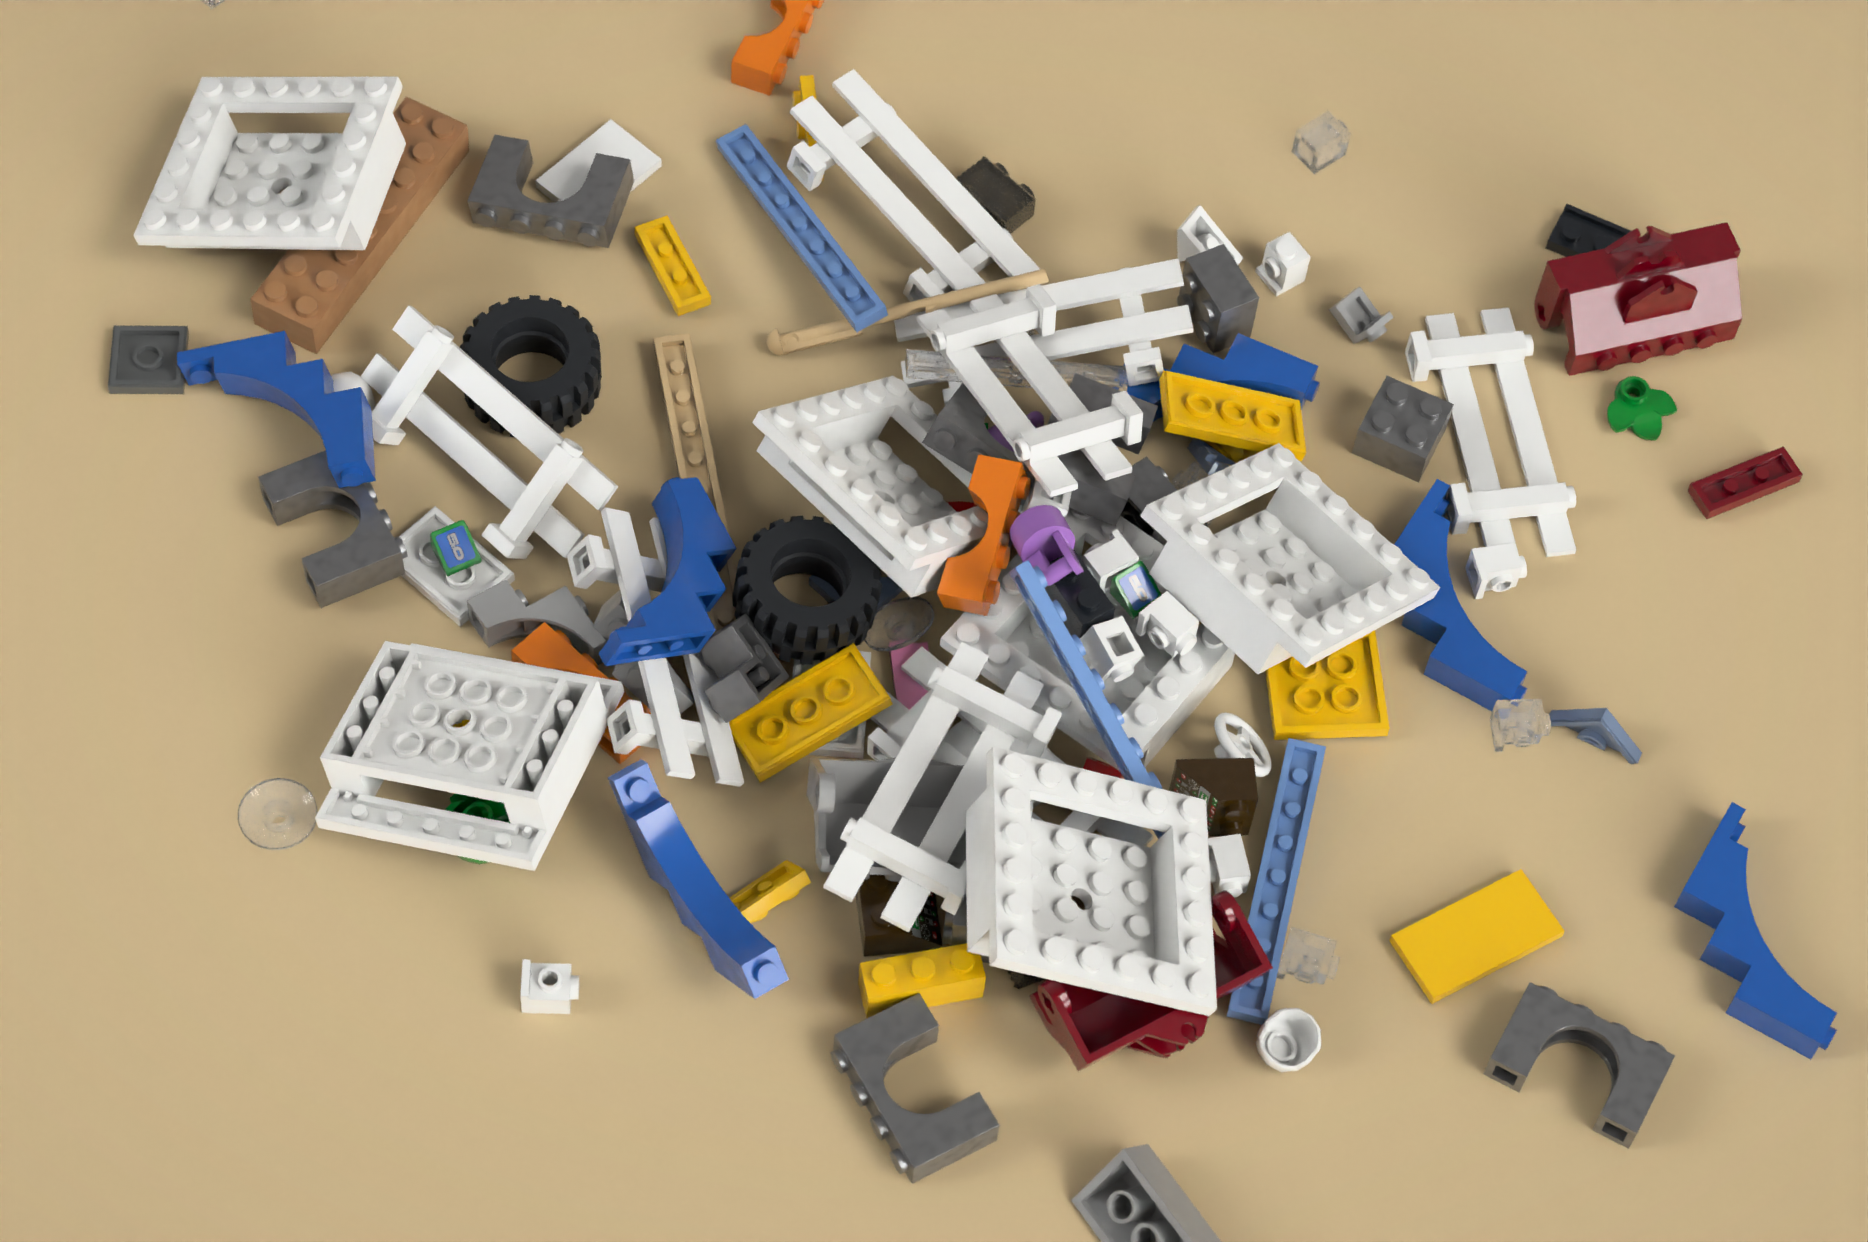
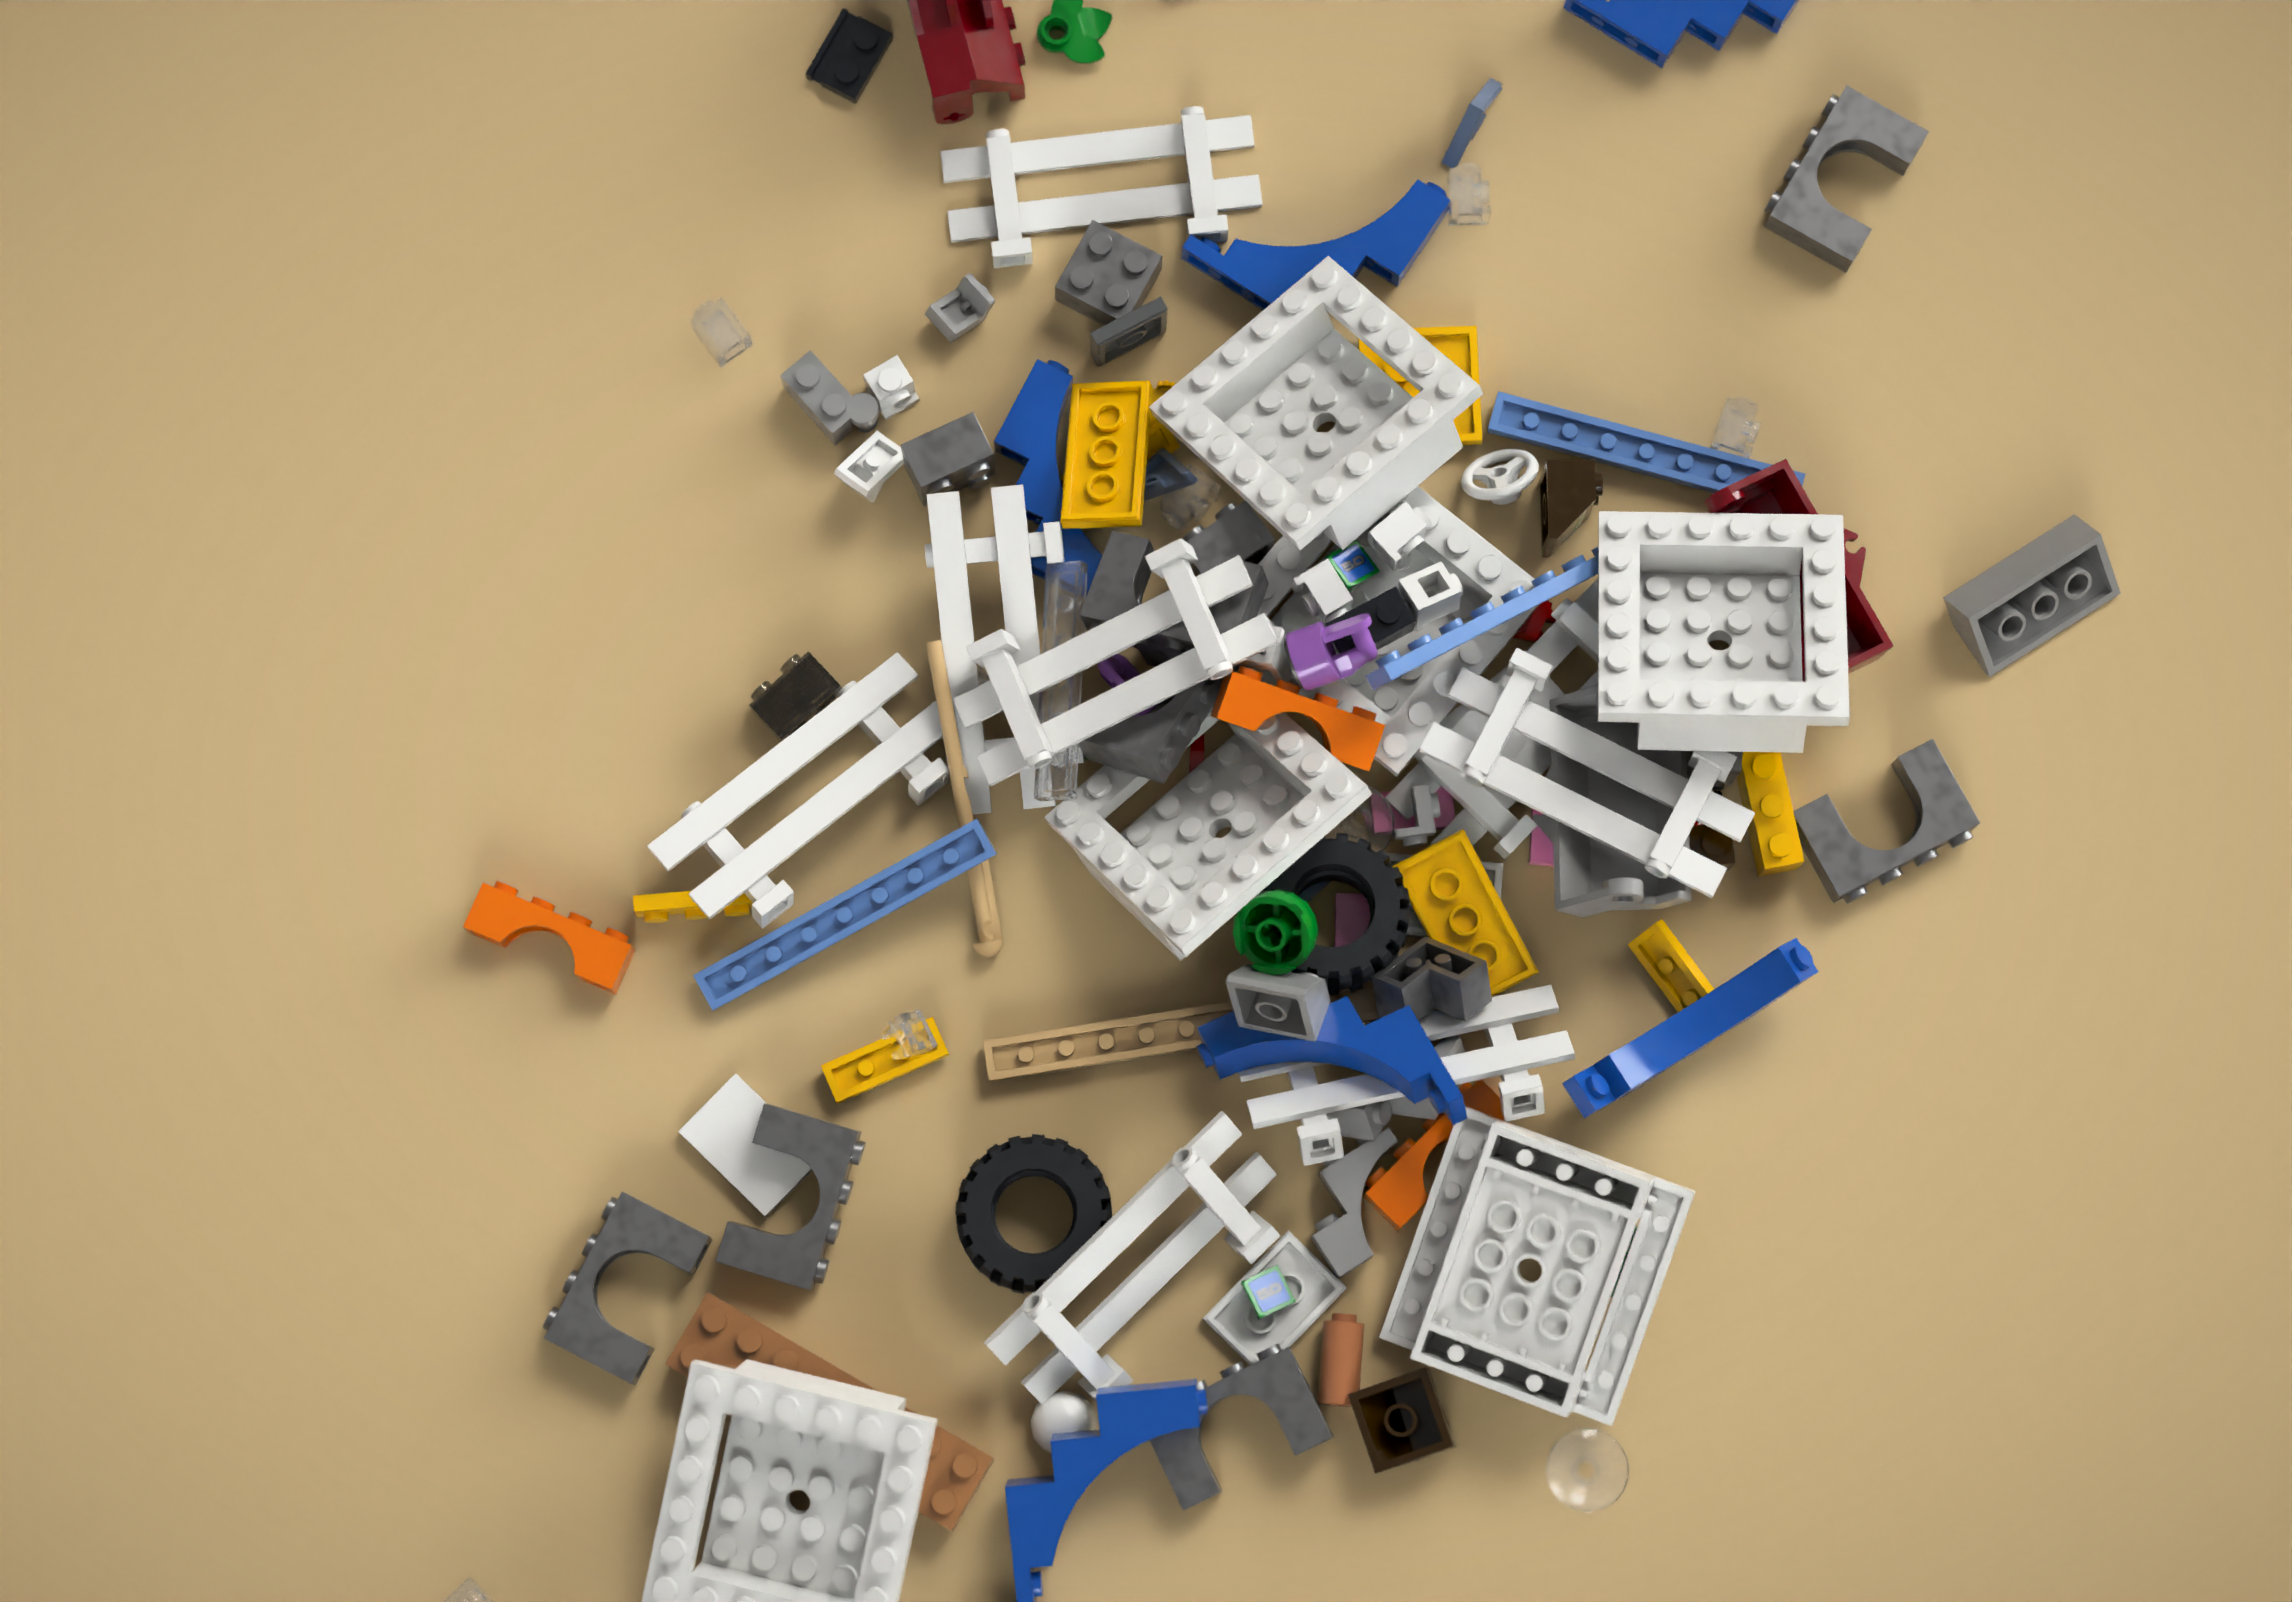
camera: 85 degrees left, 20 degrees up
(329, 654) = (1402, 1420): none -> dark brown slope
(389, 611) = (1340, 1359): none -> nougat brick
(448, 52) = (628, 1229): none -> flat silver arch
(541, 998) = (1770, 1197): white brick -> none
(693, 271) = (911, 1034): none -> clear tile
(721, 521) = (1279, 1003): none -> light grey slope
(781, 508) = (1275, 931): none -> green cylinder
(904, 667) = (1425, 809): none -> light grey bracket
(1228, 864) = (1636, 496): white brick -> none
(1267, 216) = (827, 400): none -> light grey hinge
(1288, 1039) = (1828, 455): white hair -> none
(1351, 436) = (1129, 331): none -> dark grey tile
(1476, 936) = (1702, 263): yellow tile -> none
(1495, 568) = (1282, 200): white brick -> none

